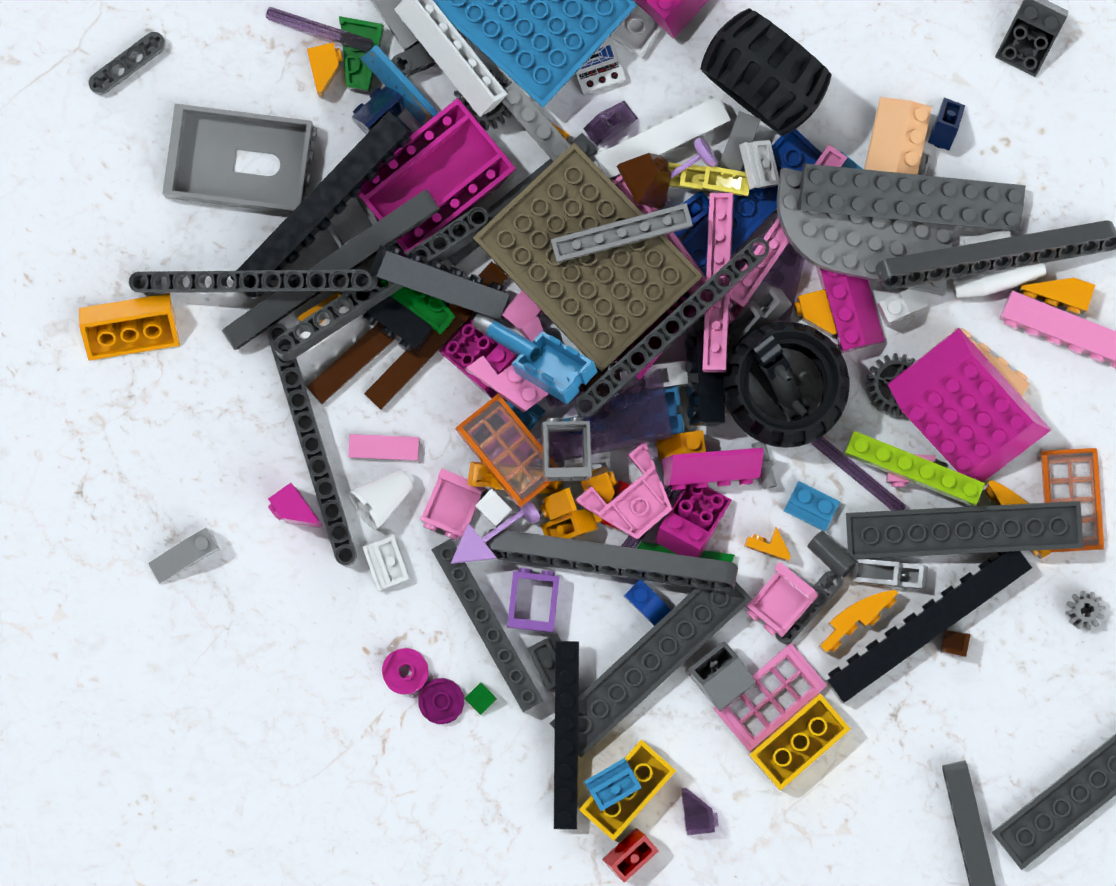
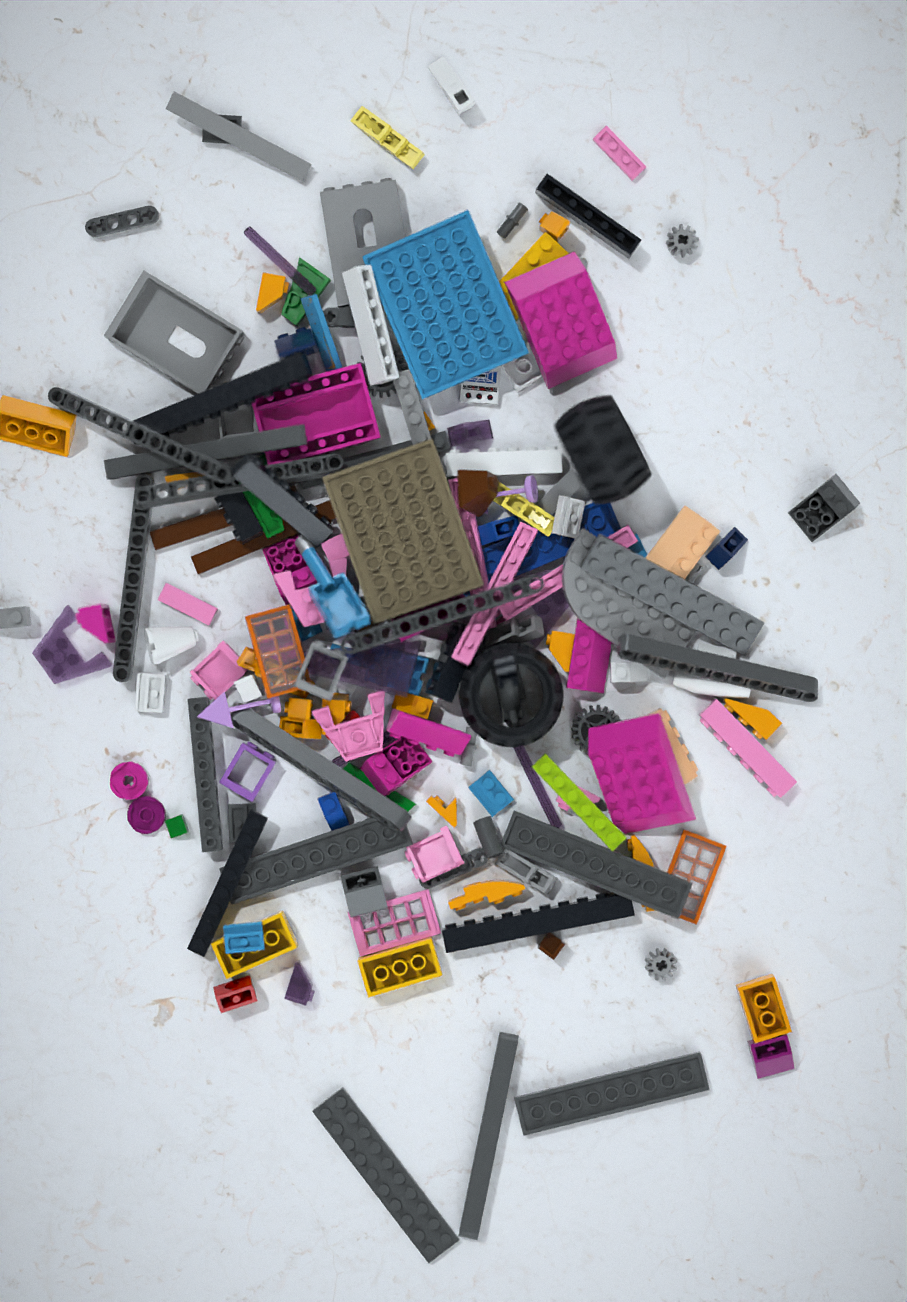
camera: 25 degrees right, 5 degrees up
(268, 567) = (59, 655): none -> clear purple wing
(621, 233) = (436, 525): light grey plate -> none

